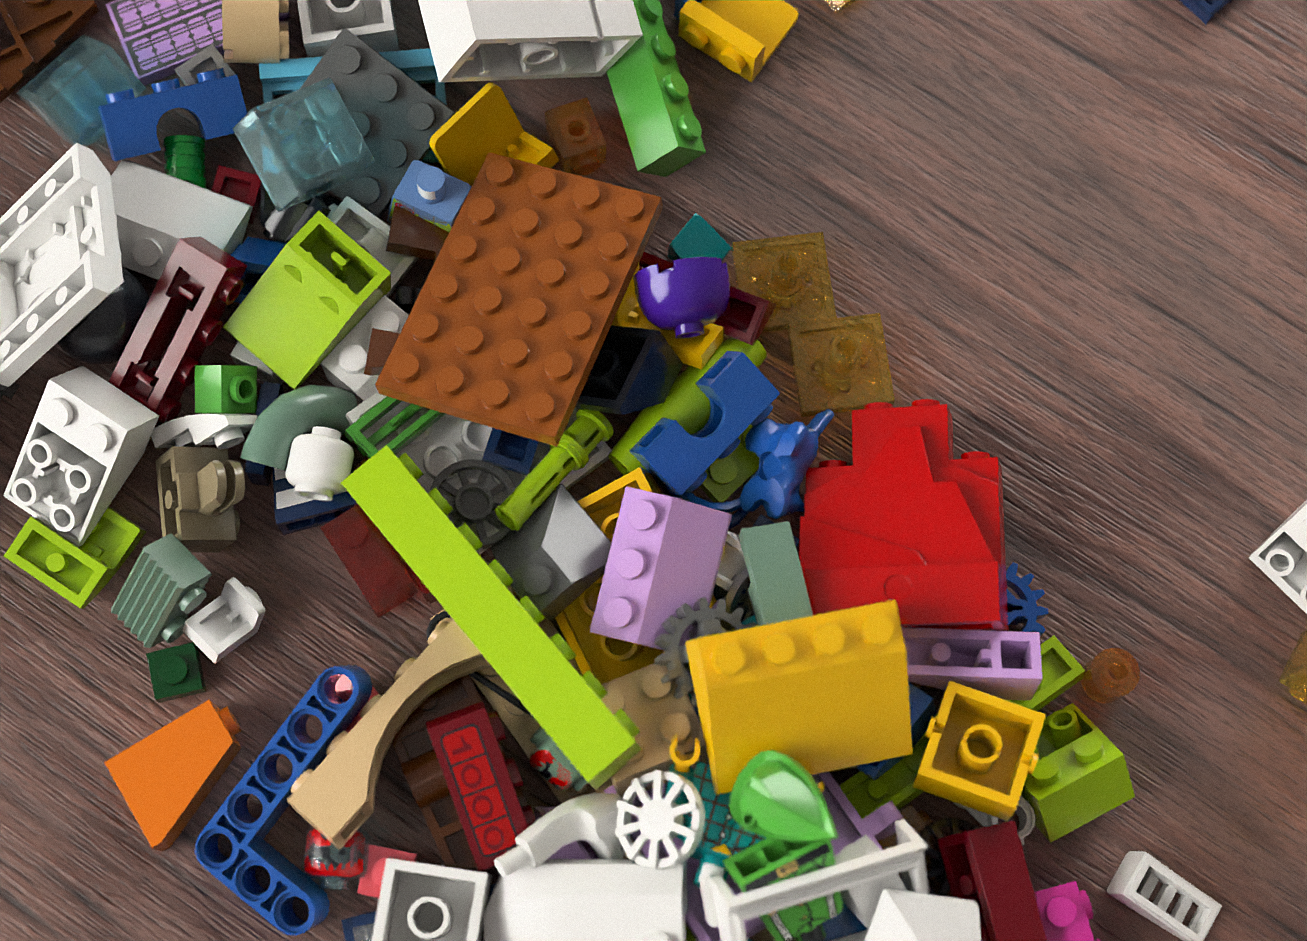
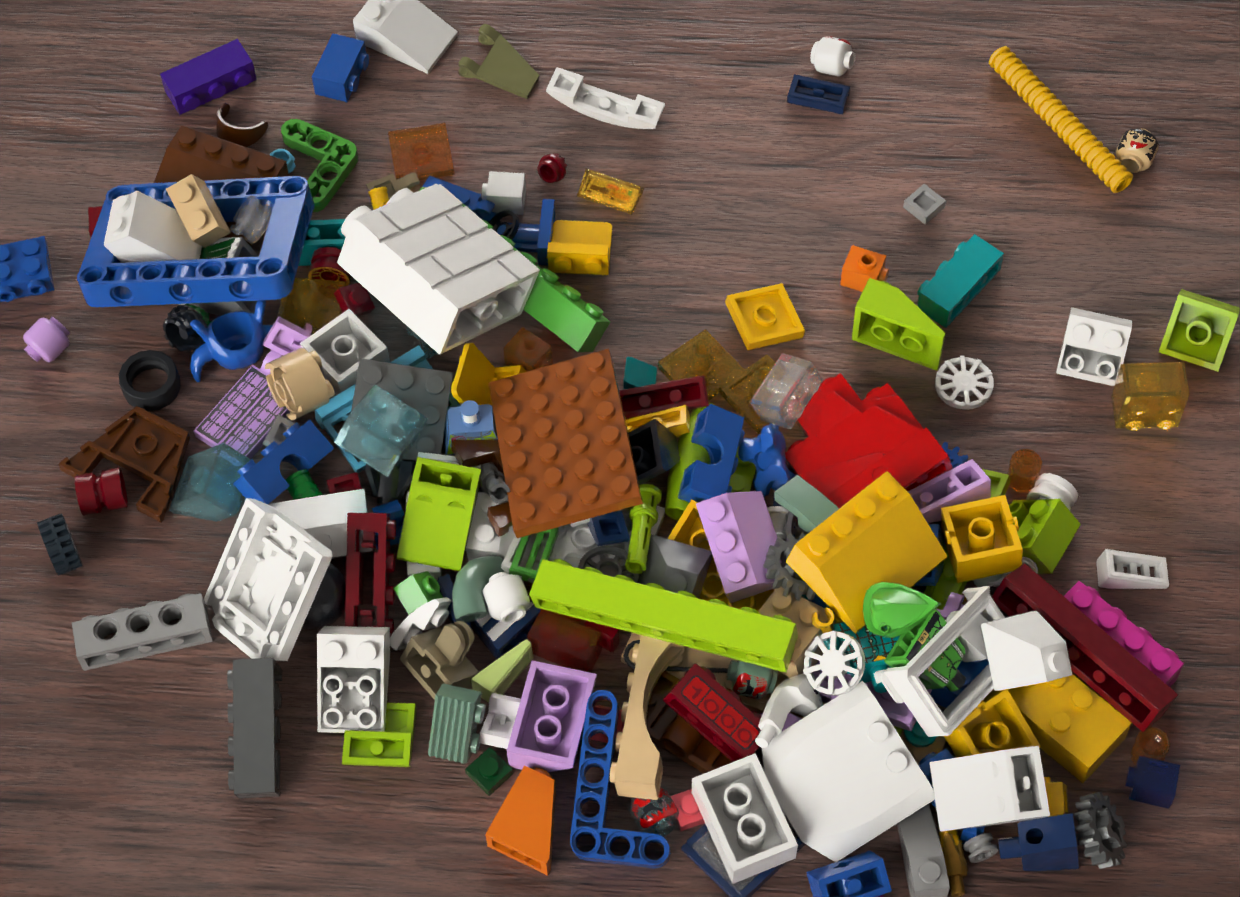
camera: 25 degrees left, 15 degrees down
(265, 555) = (504, 671): none -> yellowish green slope
(280, 653) = (550, 717): none -> lavender slope
(398, 302) = (494, 483): none -> dark grey pin
(684, 295) = (656, 394): dark purple cylinder -> none
(859, 388) = (786, 391): none -> clear brick
(913, 256) = (764, 316): none -> yellow plate
(1070, 367) = (896, 325): none -> lime slope
(1085, 267) = (861, 266): none -> orange brick
(1116, 501) = (964, 382): none -> white wheel
(1127, 731) = (1053, 487): none -> white wheel
(1203, 352) = (959, 280): none -> teal brick
(1229, 216) = (924, 204): none -> light grey plate

